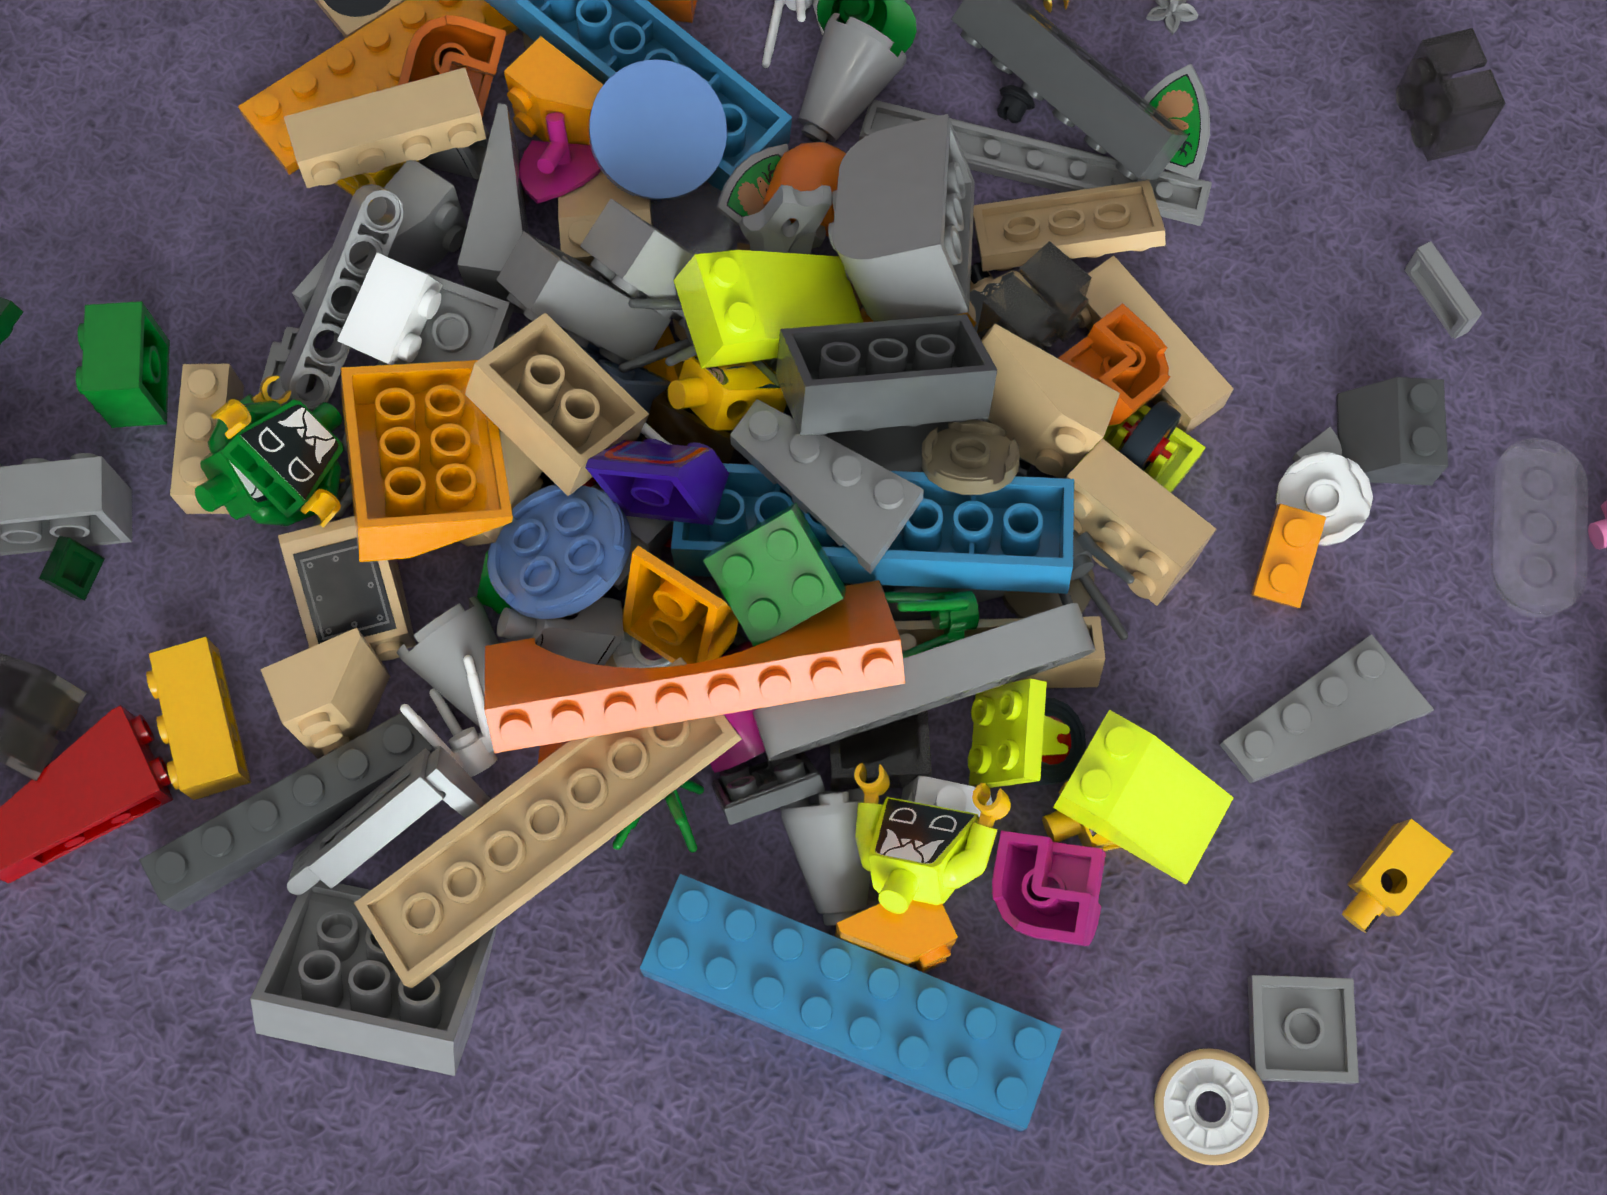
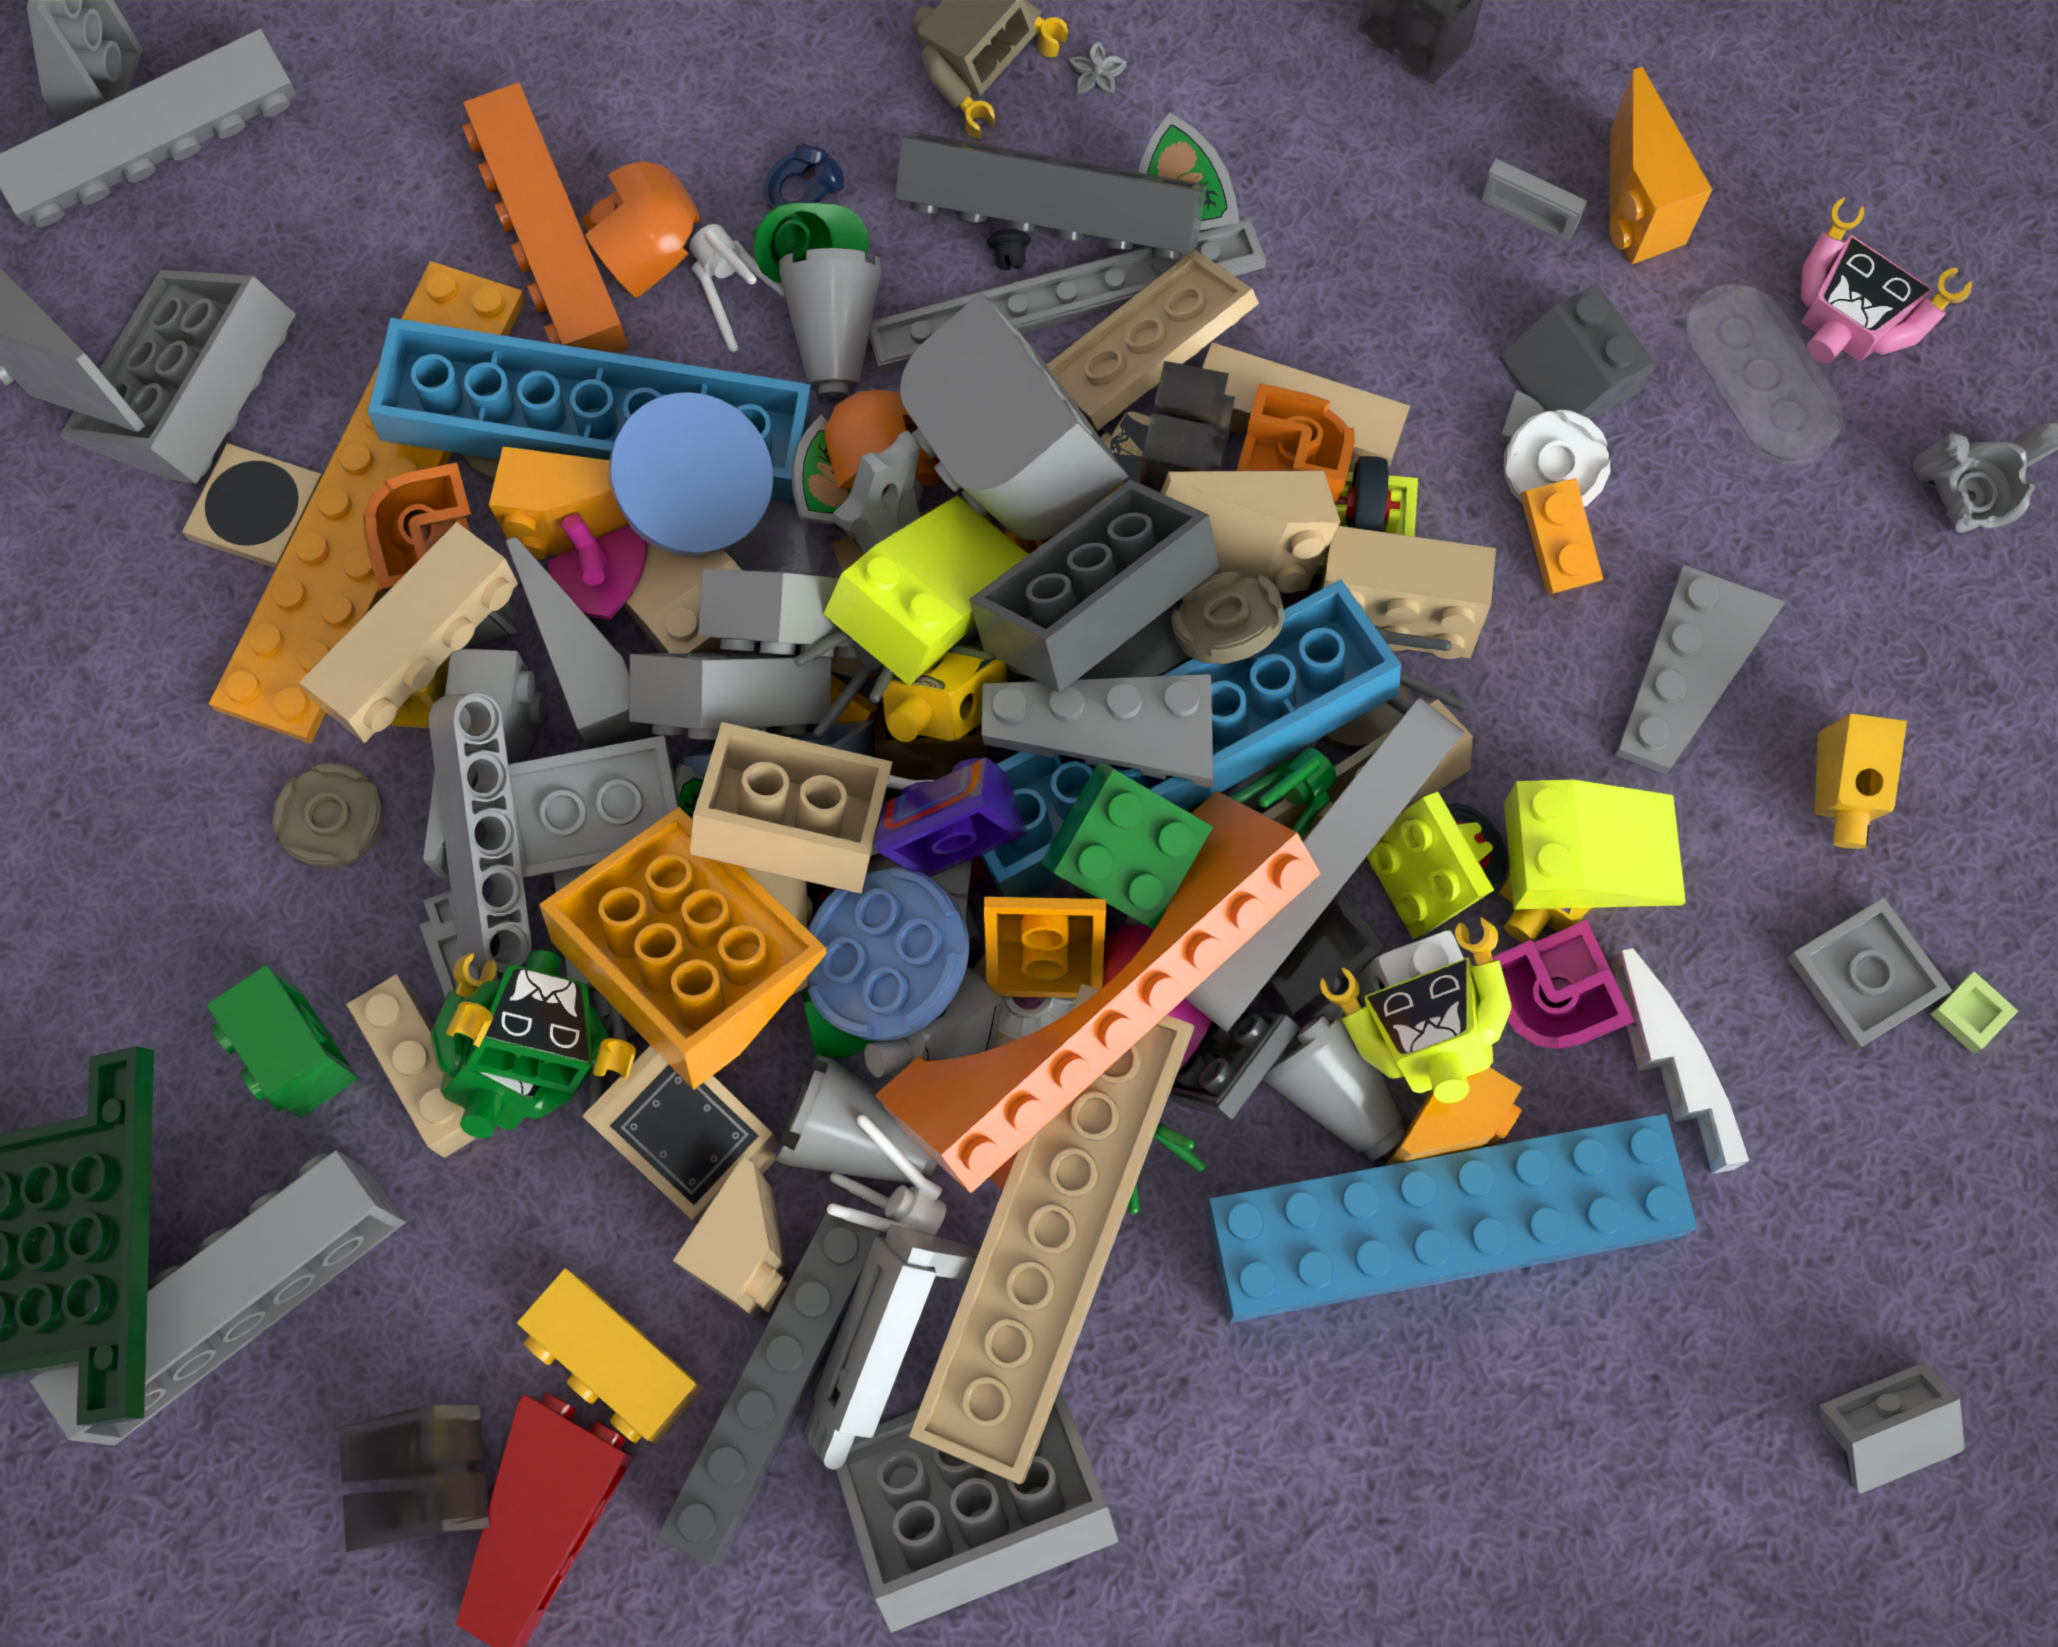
camera: 30 degrees left, 0 degrees up
(71, 568) = (366, 1288): dark green tile -> none
(272, 245) = (337, 829): none -> dark tan tile
(391, 312) = (550, 817): white brick -> none
(1106, 980) = (1667, 1041): none -> white slope
(1244, 1098) = (1875, 1091): white wheel -> none
(1366, 1110) = (1973, 1012): none -> yellowish green plate
(1548, 329) = (1653, 176): none -> light orange slope

